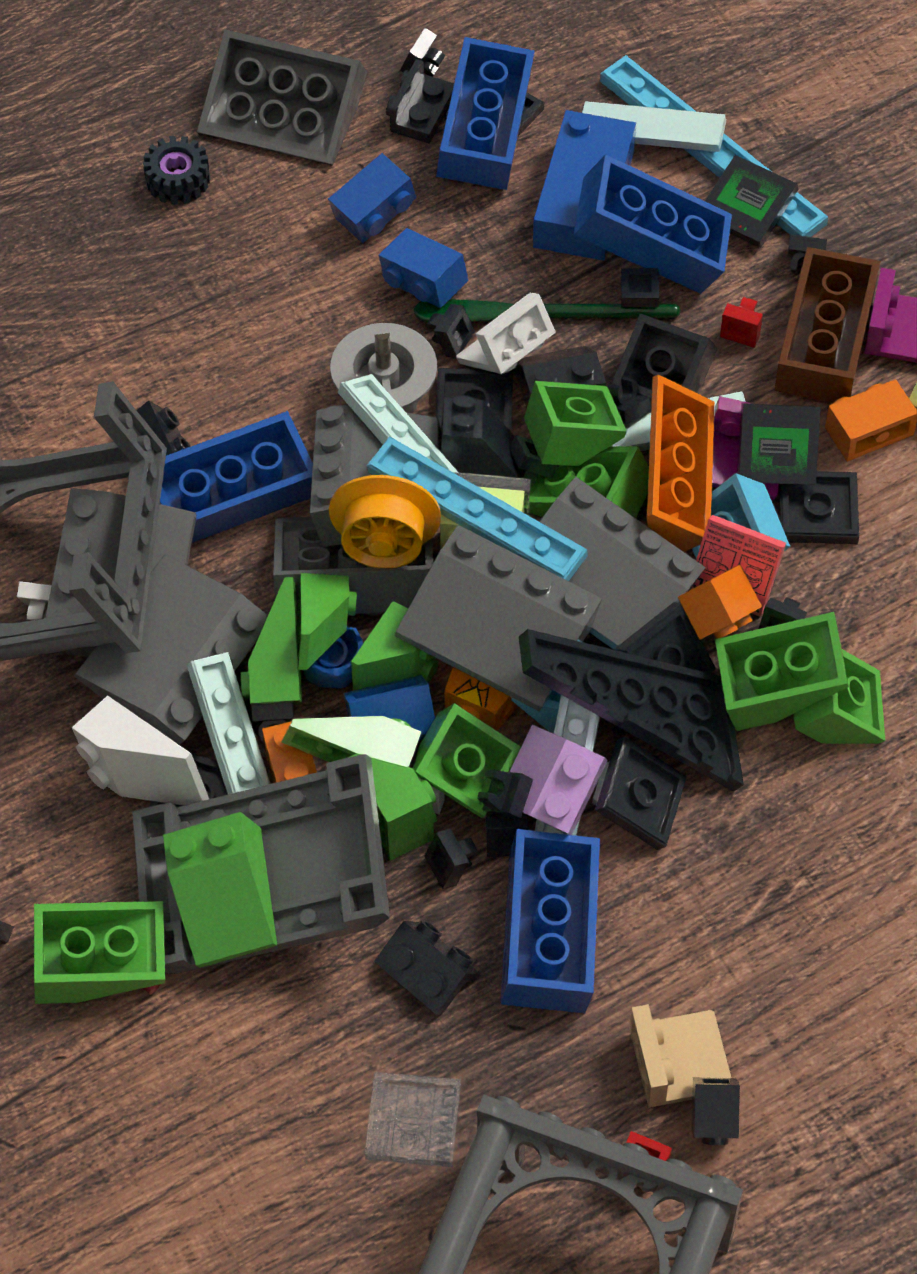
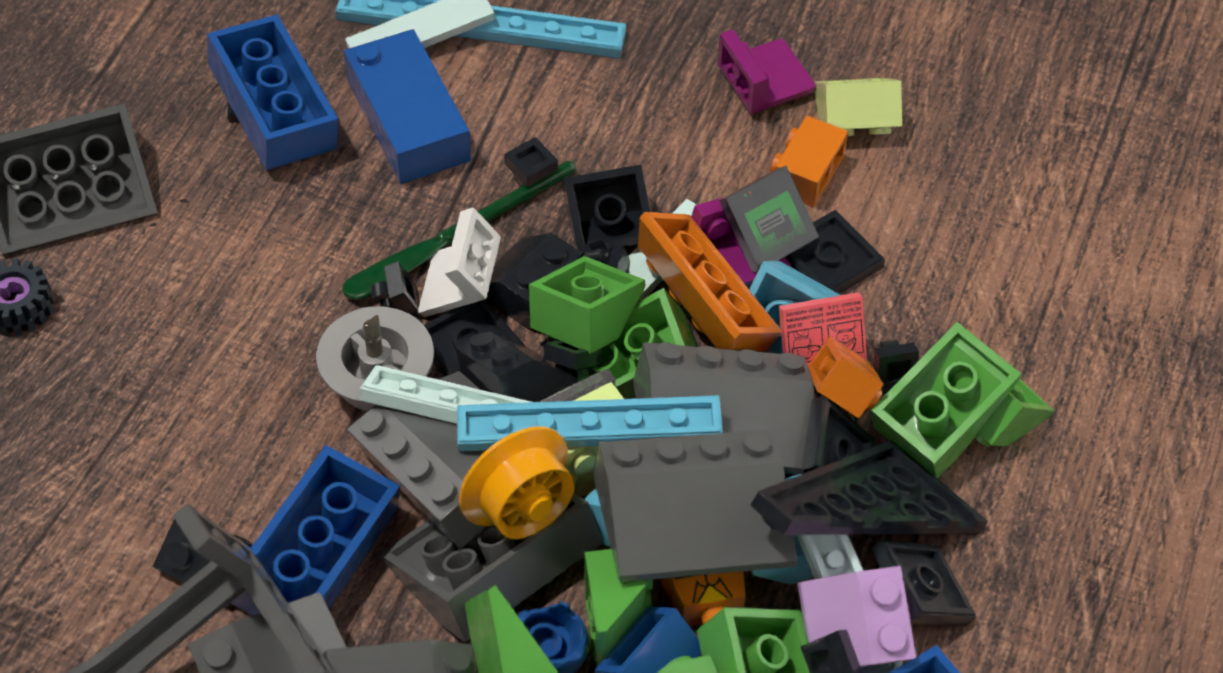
camera: 40 degrees left, 5 degrees down
(322, 614) = (527, 595): bright green slope -> none
(372, 198) = (229, 218): blue brick -> none
(419, 104) = (199, 119): black bracket -> none
(421, 50) = (165, 76): tile -> none
(423, 268) = (328, 251): blue brick -> none
(653, 224) = (505, 100): blue brick -> none
(742, 323) = (638, 143): red tile -> none
(753, 198) = (553, 45): tile -> none
(798, 246) = (636, 56): black tile -> none
(827, 325) = (712, 106): reddish brown brick -> none

